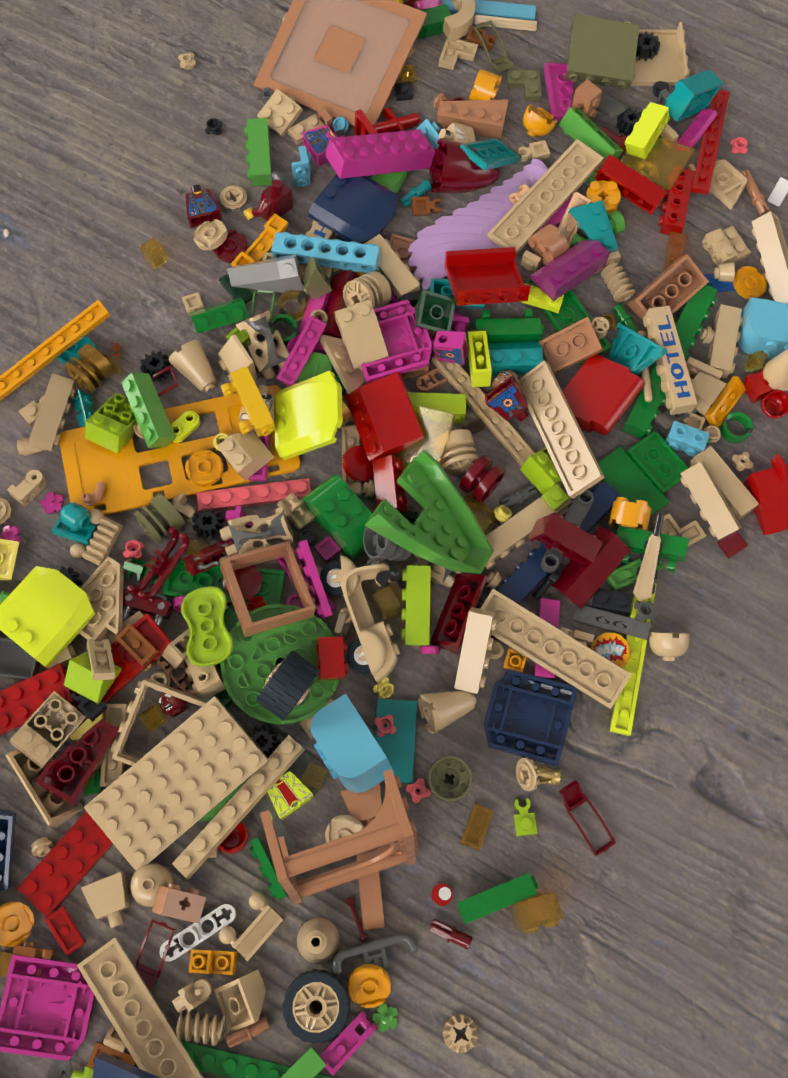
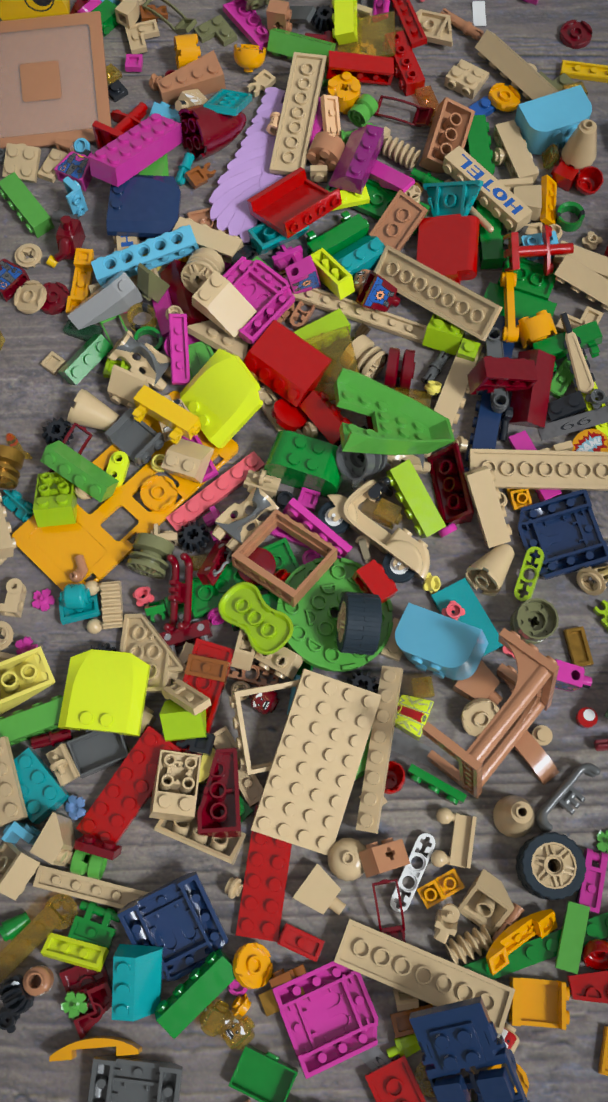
camera: 25 degrees left, 0 degrees up
(152, 718) = (256, 723): clear yellow plate -> none
(214, 409) = (134, 438): none -> dark grey panel
(246, 1046) = (517, 934): none -> light orange slope
(363, 936) = (518, 770): dark red hinge -> none
(369, 985) = (580, 823): light orange tile -> none
(390, 885) = (542, 735): none -> tan plate
(434, 74) = (134, 62): none -> dark pink plate
(434, 311) = (272, 253): dark green slope -> none
(438, 840) = (571, 677): none -> dark pink torso
(475, 742) = (538, 561): none -> lime beam
(590, 301) = (390, 178): none -> dark pink slope
(595, 224) = (353, 112): teal wing -> none
(602, 503) = (510, 332): none -> light orange piece
(659, 260) = (421, 118): none -> dark red piece
(687, 447) = (547, 250): none -> red piece
(725, 272) = (482, 97): tan hat -> none

